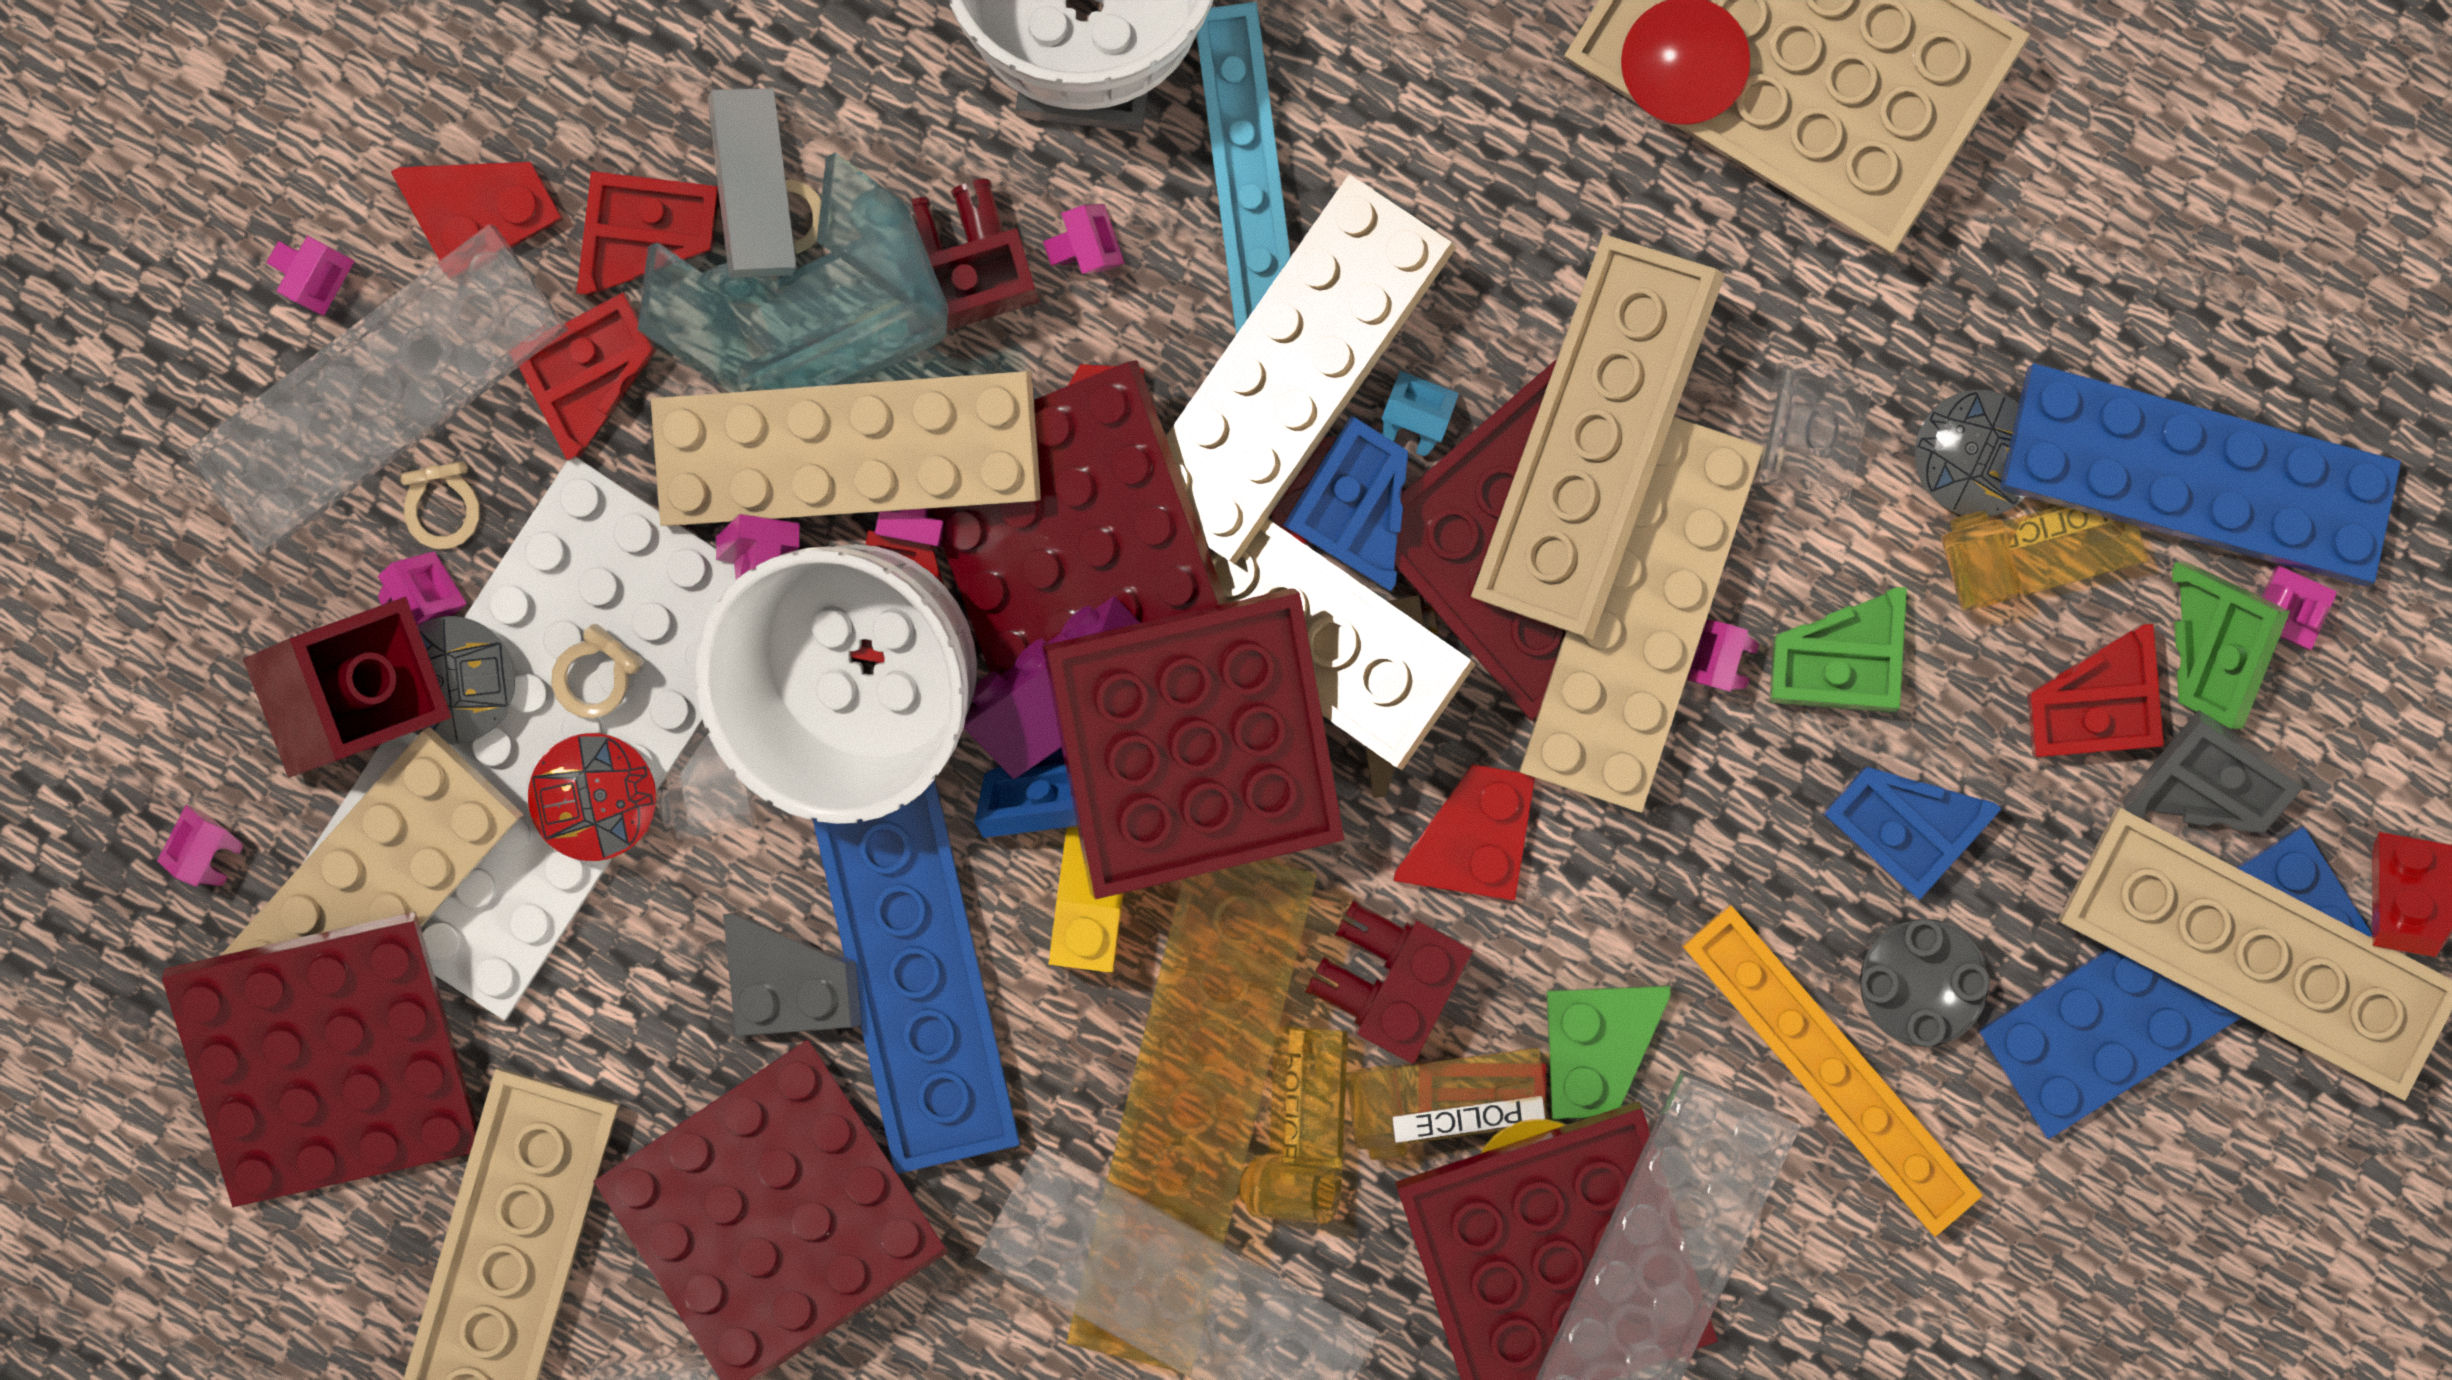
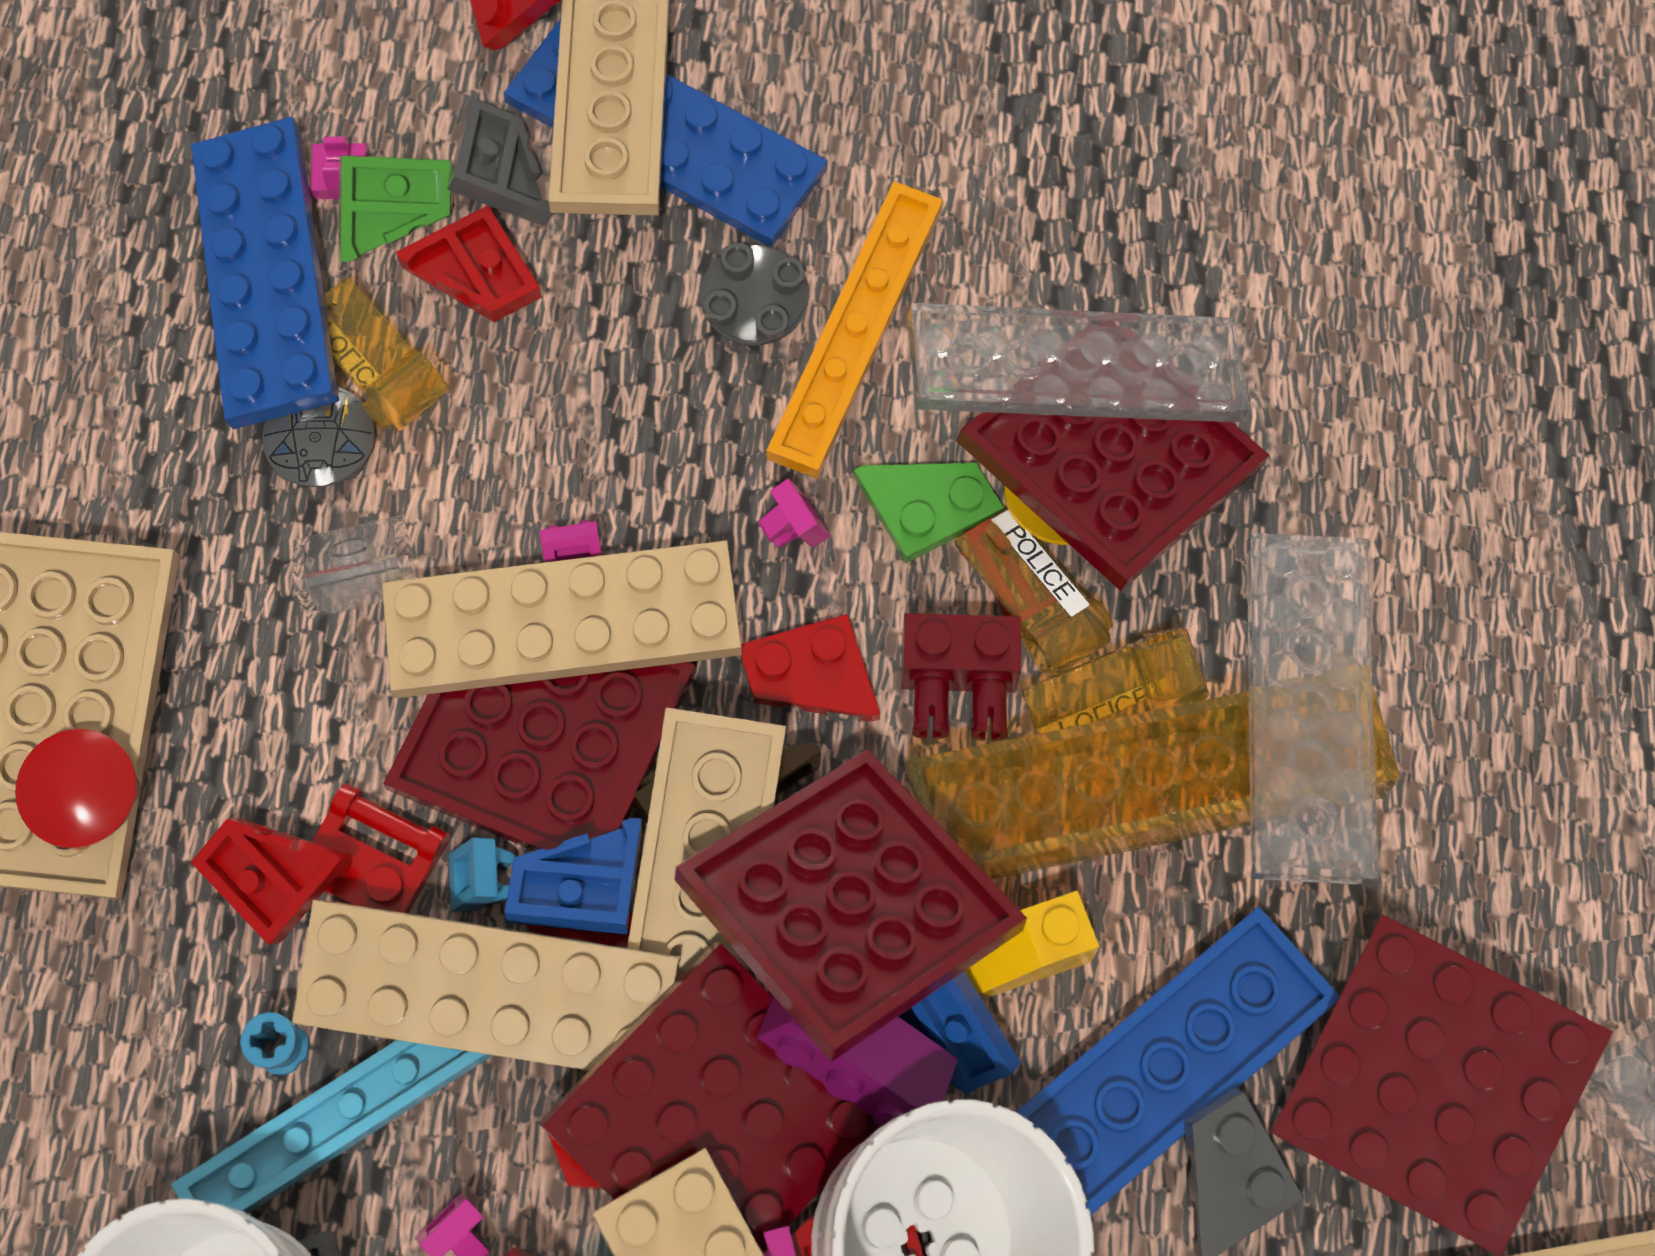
camera: 120 degrees left, 20 degrees down
(1335, 132) = (264, 1030): none -> dark azure bush
(1478, 301) = (371, 875): none -> red plate
(1517, 210) = (267, 874): none -> red wing
(1598, 435) = (428, 709): tan plate -> none
(1643, 900) = (792, 518): none -> dark pink tile
(1845, 658) = (528, 458): bright green wing -> none
(1908, 825) = (639, 356): blue wing -> none

